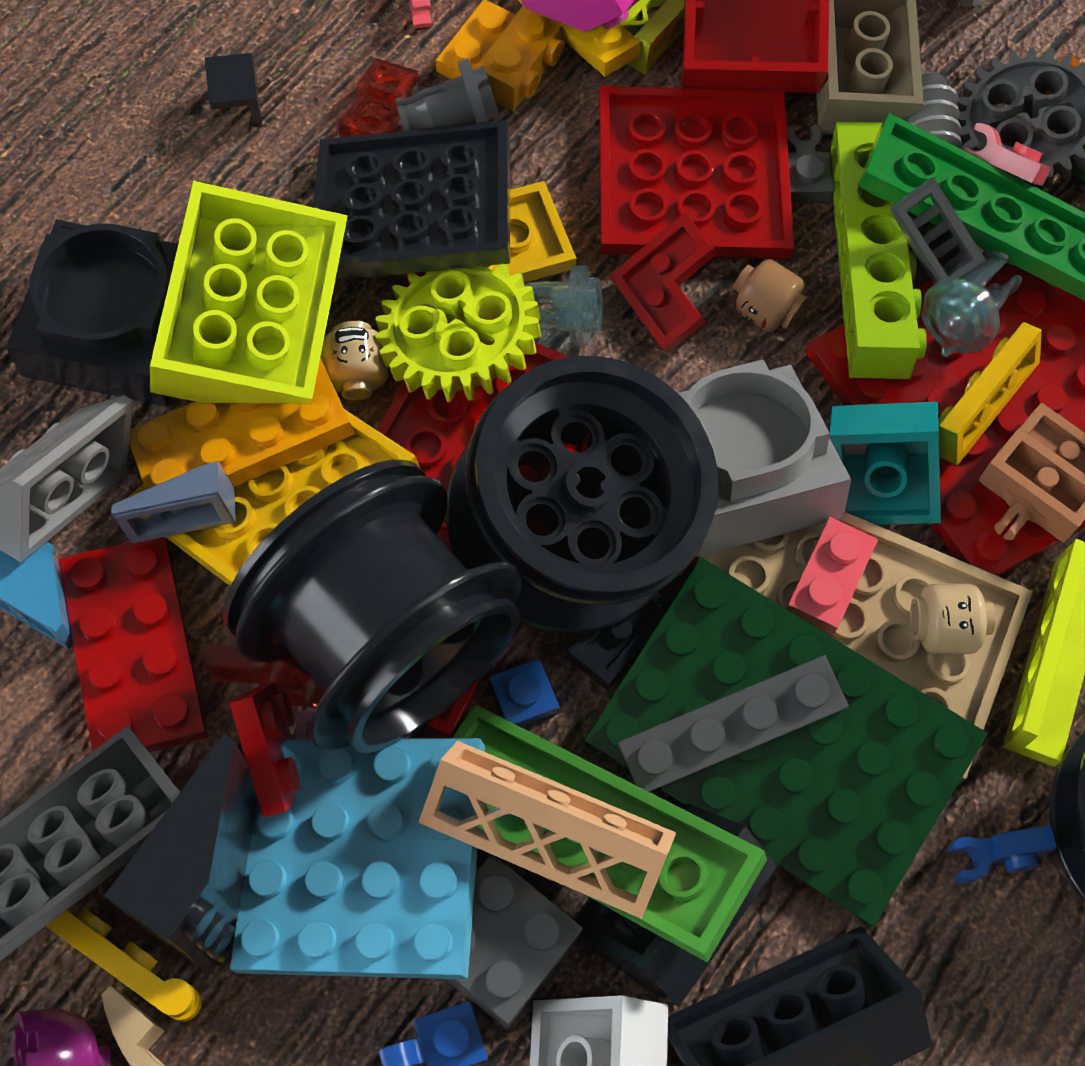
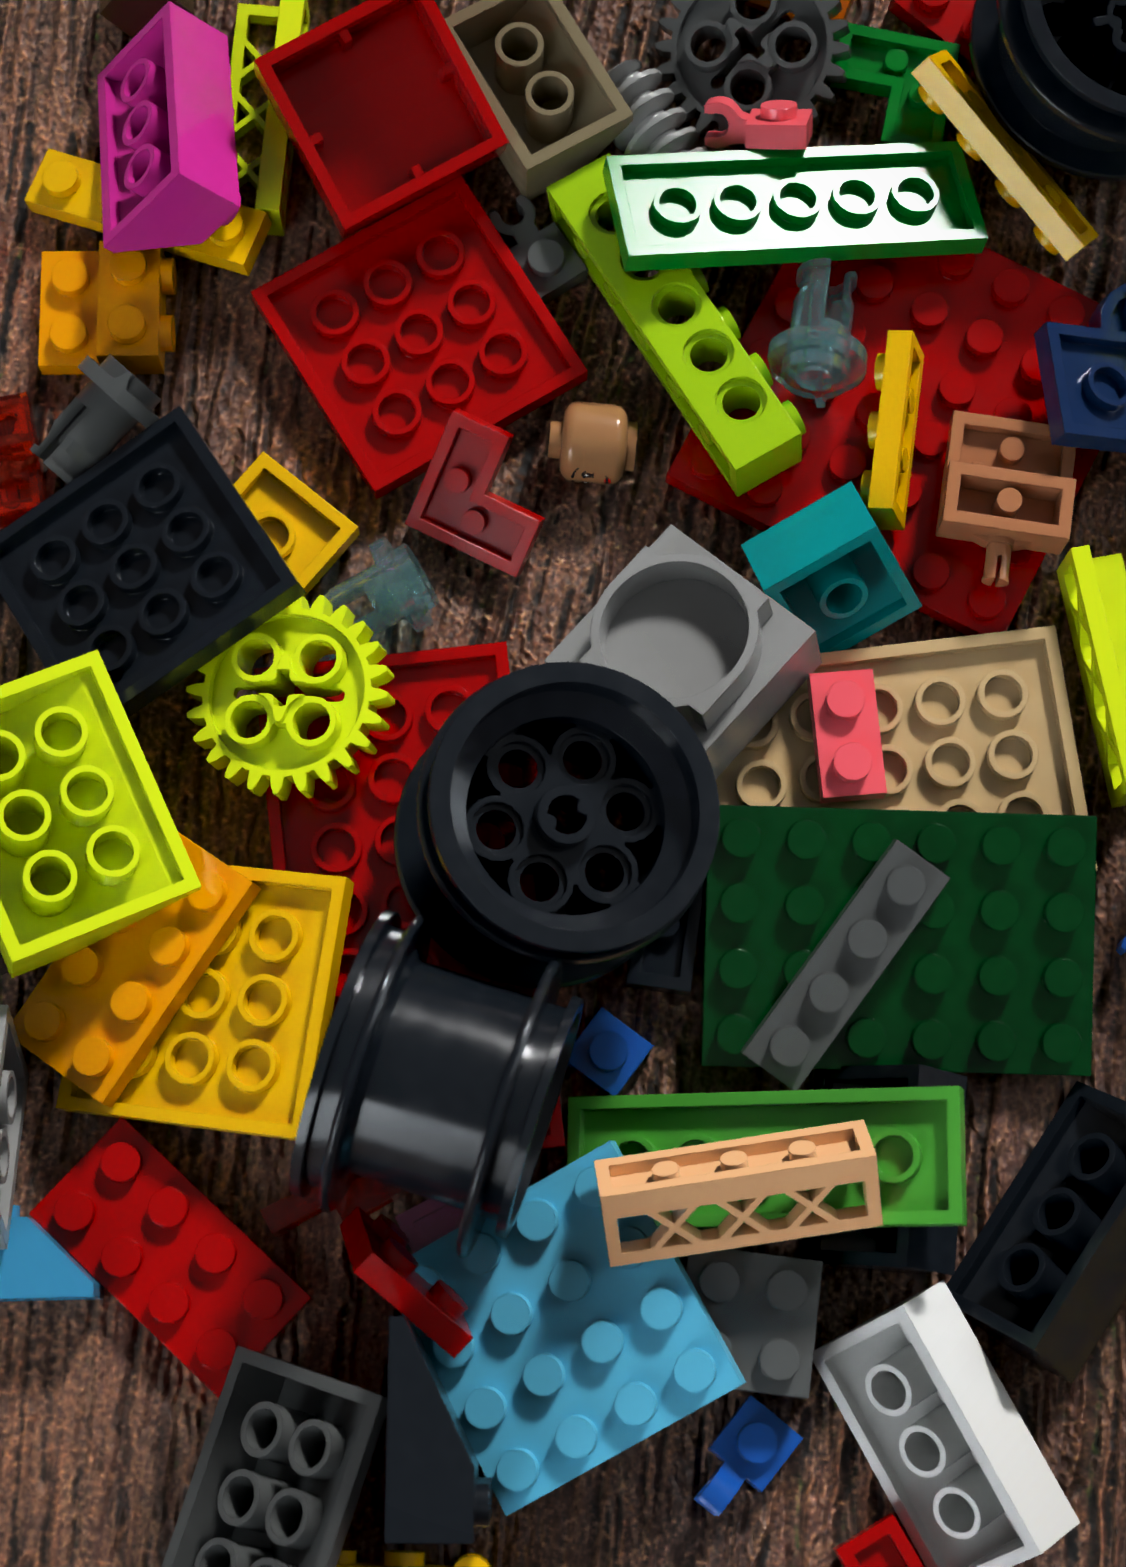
camera: 30 degrees left, 10 degrees up
(179, 505) = (136, 1081): sand blue slope -> none
(354, 360) = (198, 796): tan head -> none
(951, 618) = (995, 715): tan head -> none
(962, 263) = (781, 302): dark grey slope -> none

